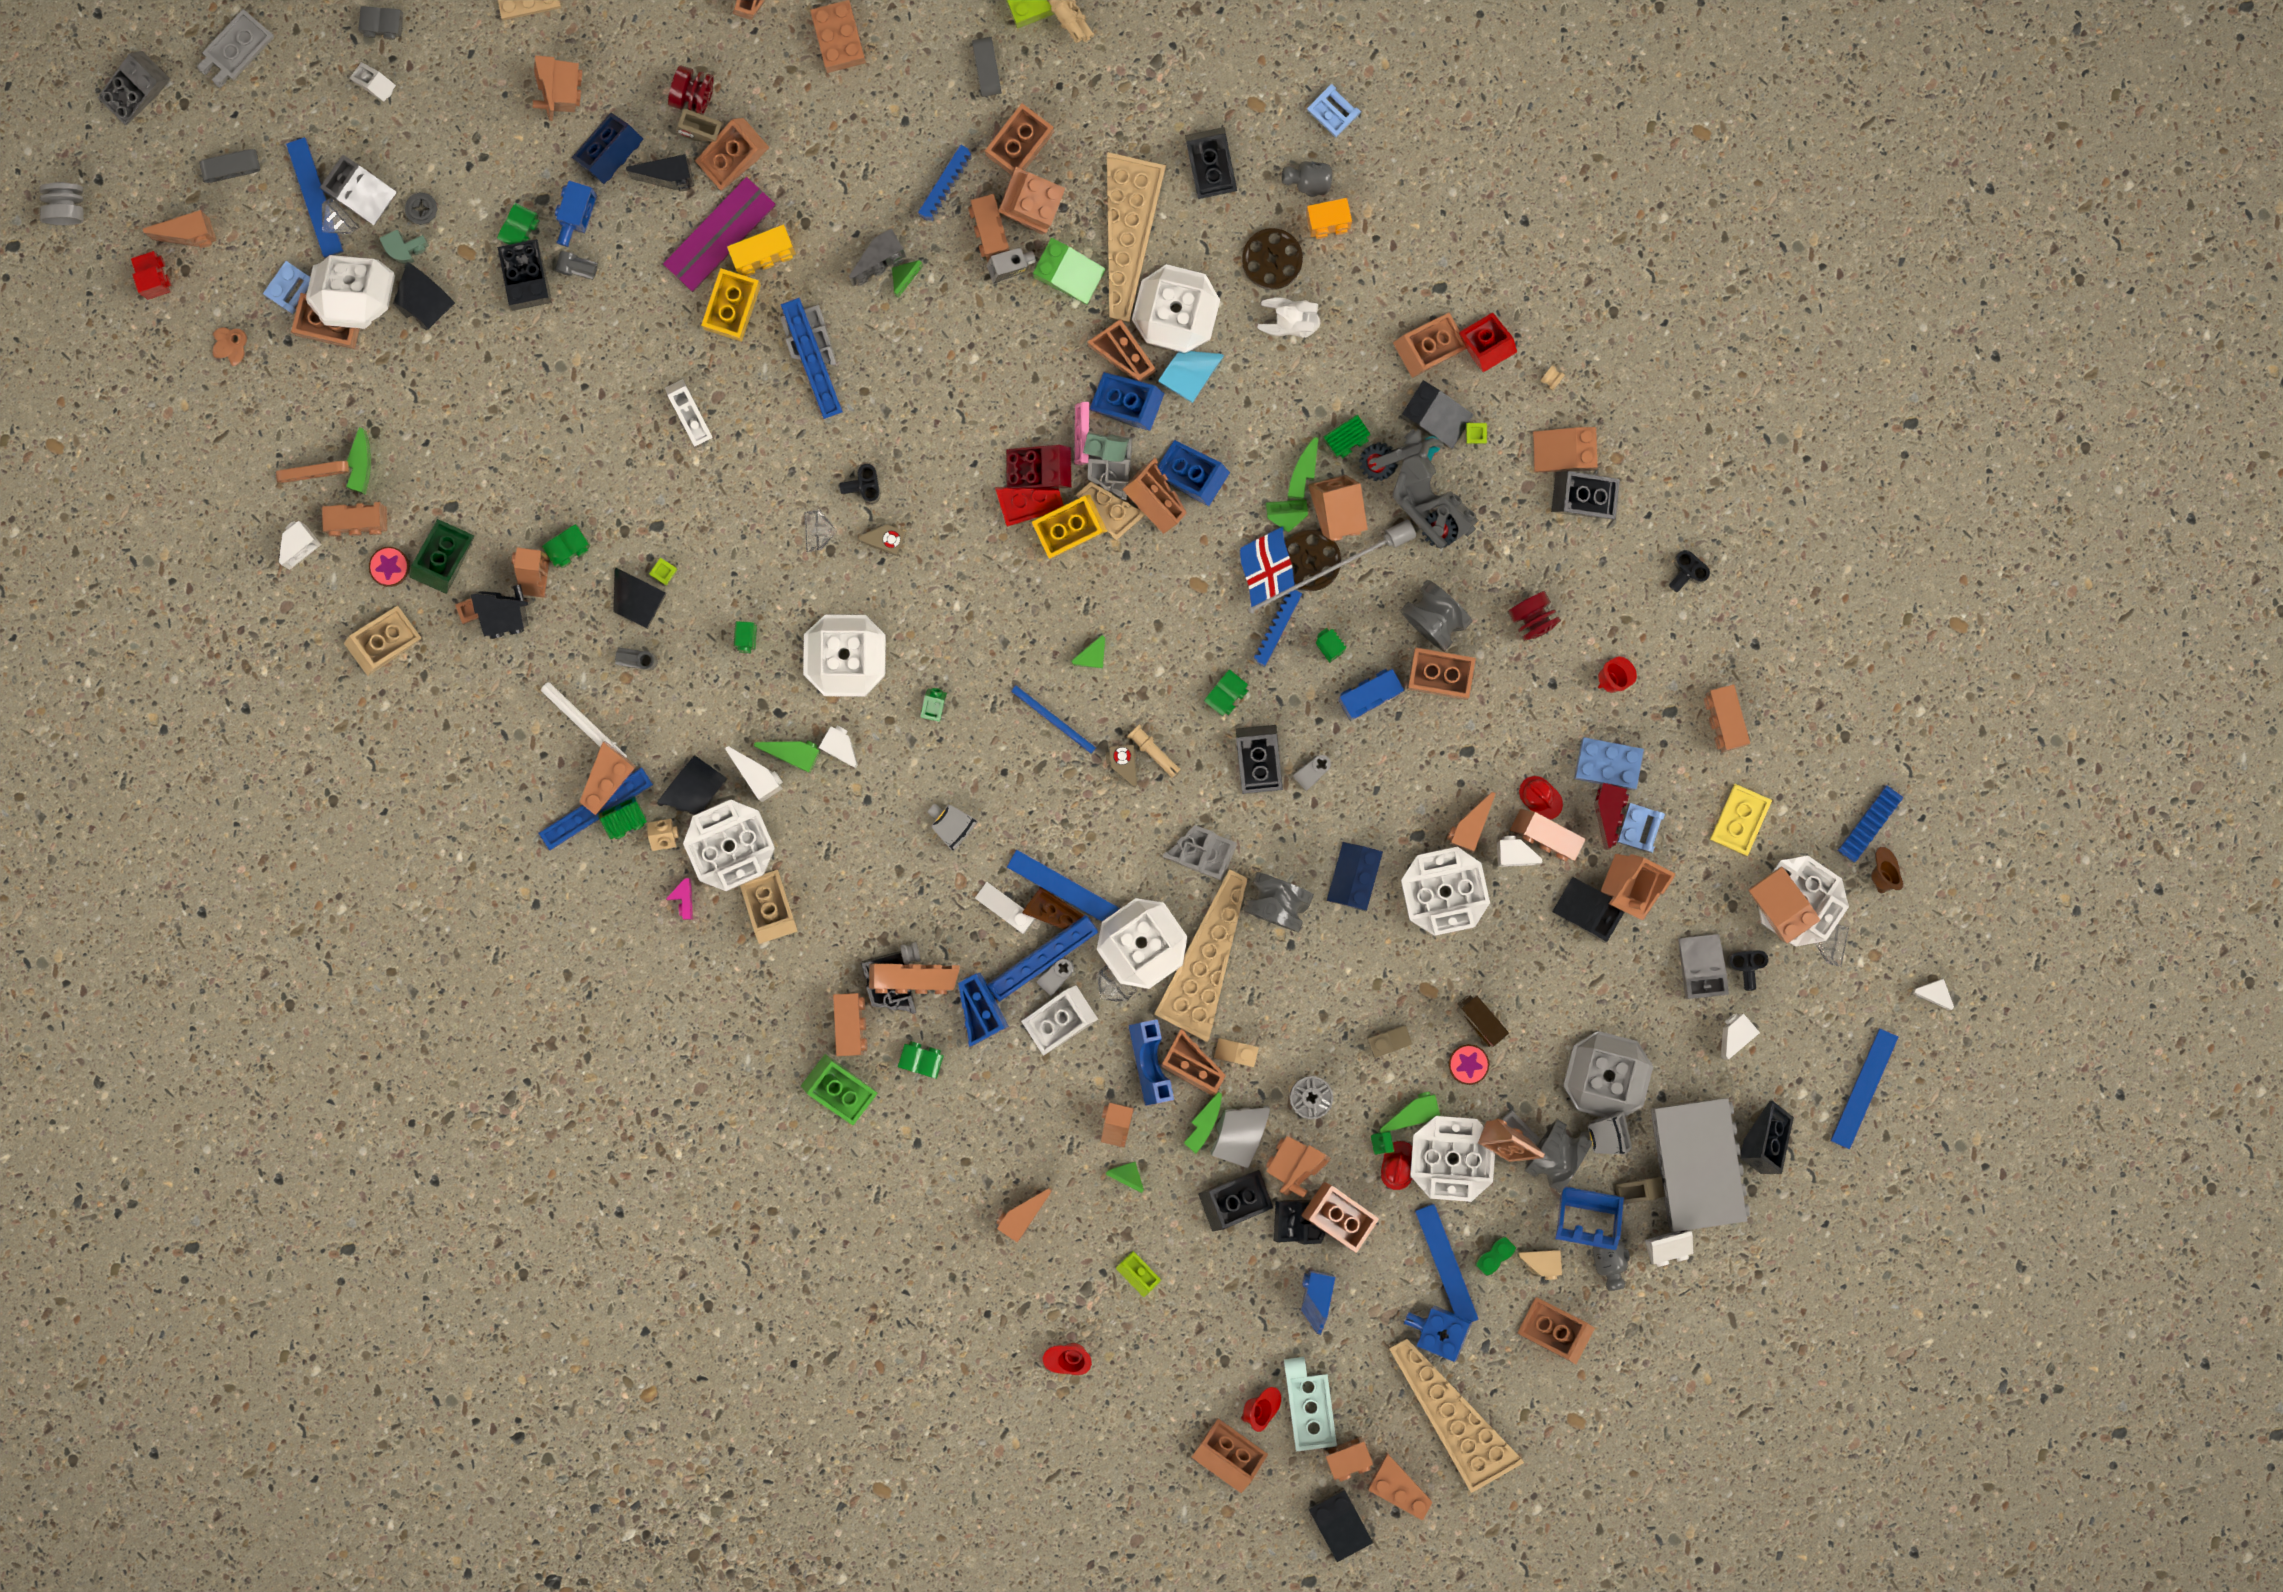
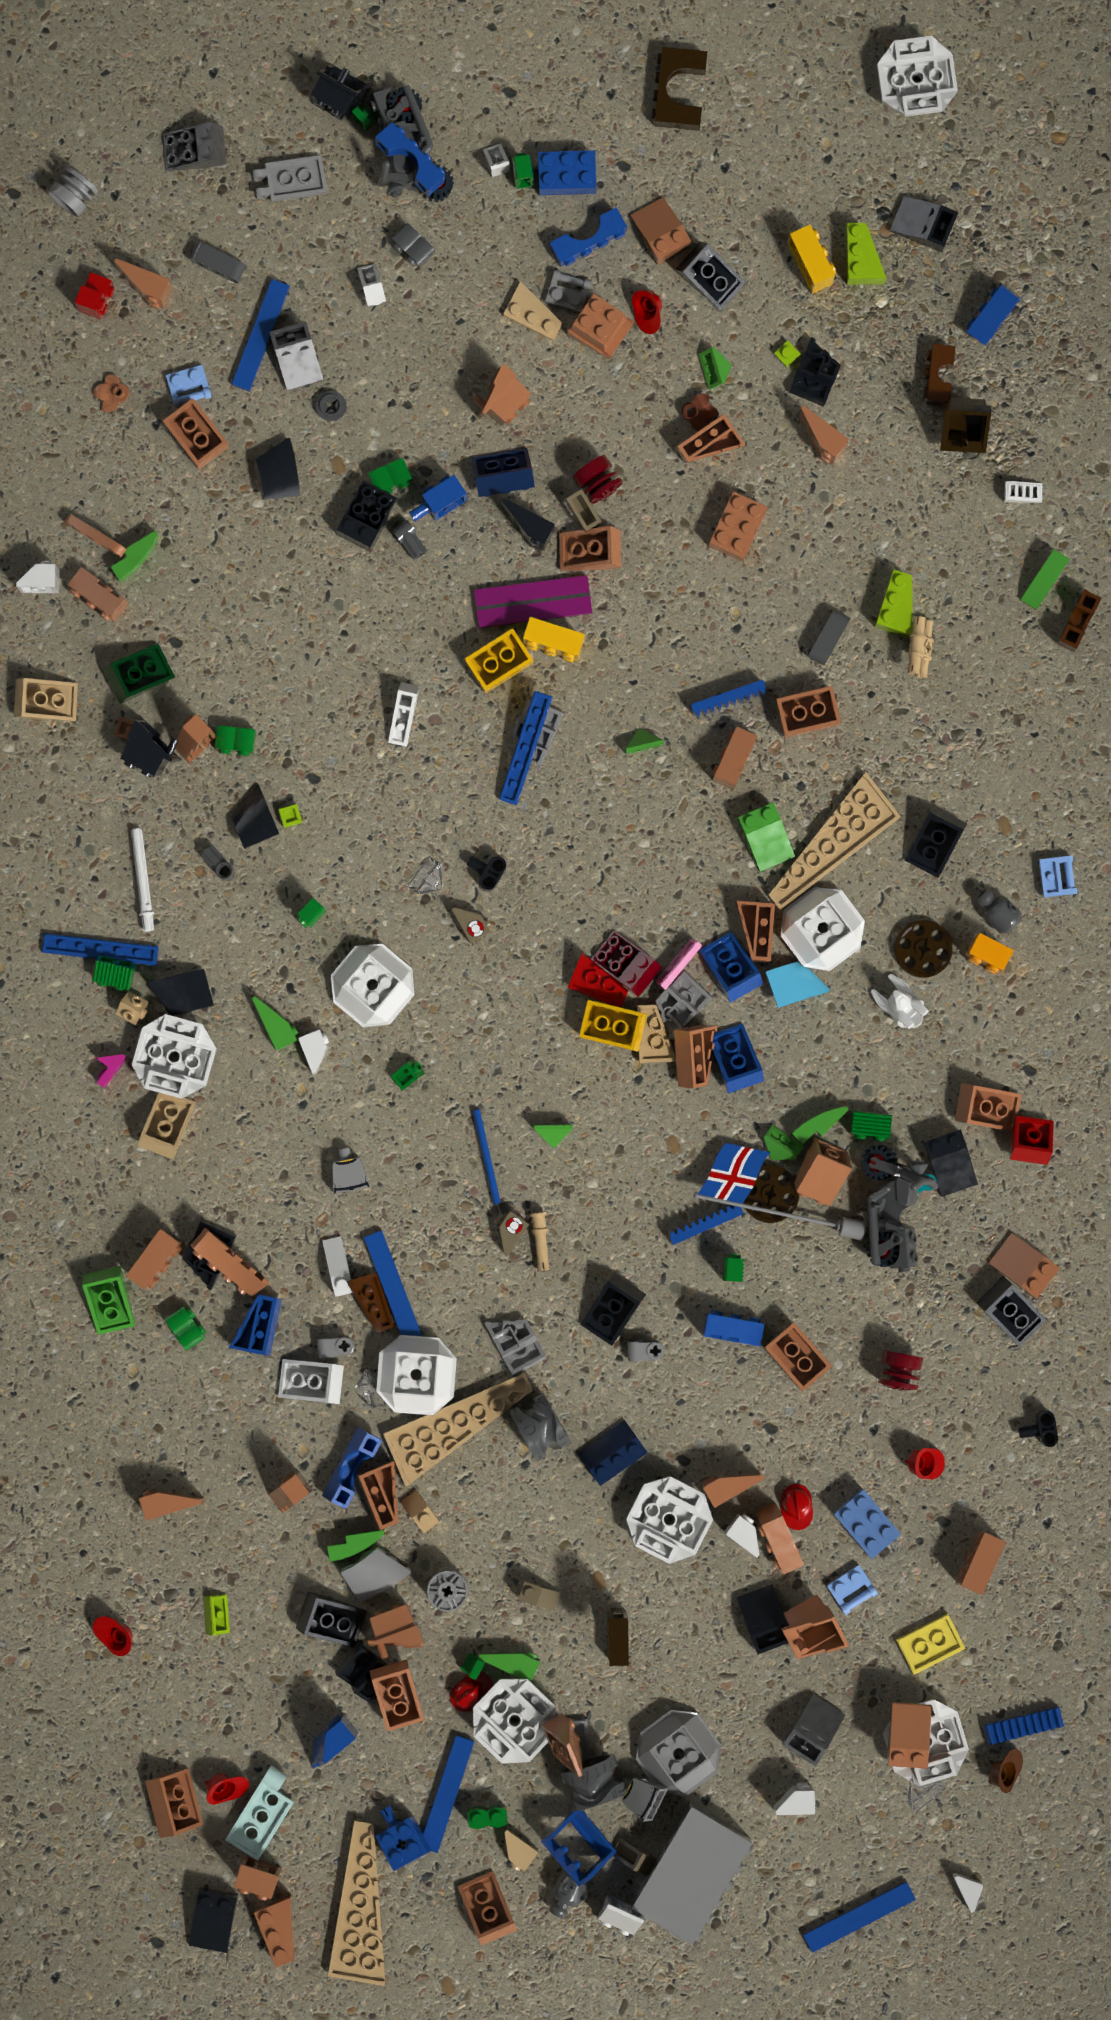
camera: 30 degrees right, 0 degrees up
(336, 219) = (263, 364): clear slope -> none
(349, 291) = (220, 436): white piece -> none
(389, 566) = (94, 649): tile -> none
(399, 250) = (291, 426): sand green brick -> none
(605, 778) = (126, 933): nougat wedge -> none
(760, 779) = (236, 1025): white slope -> none
(880, 254) = (638, 712): flat silver slope -> none
(910, 953) = (242, 1243): light grey wheel -> none
(1001, 266) = (719, 793): light grey torso -> none
(1031, 200) = (780, 763): nougat piece -> none
(1042, 958) = (335, 1326): blue tile -> none
(1109, 448) = (688, 991): sand green brick -> none
(1128, 1175) = (267, 1535): bright green slope -> none
(1226, 693) = (628, 1241): green brick -> none
(1436, 615) = (828, 1311): dark grey piece -> none
(1468, 1064) = (583, 1659): tile -> none
(1476, 433) = (968, 1200): lime plate -> none
(1552, 377) = (1058, 1205): tan wheel -> none
(1608, 811) = (839, 1556): dark red slope -> none
(1748, 967) = (847, 1757): black beam -> none
(1768, 1140) = (757, 1897): black slope -> none

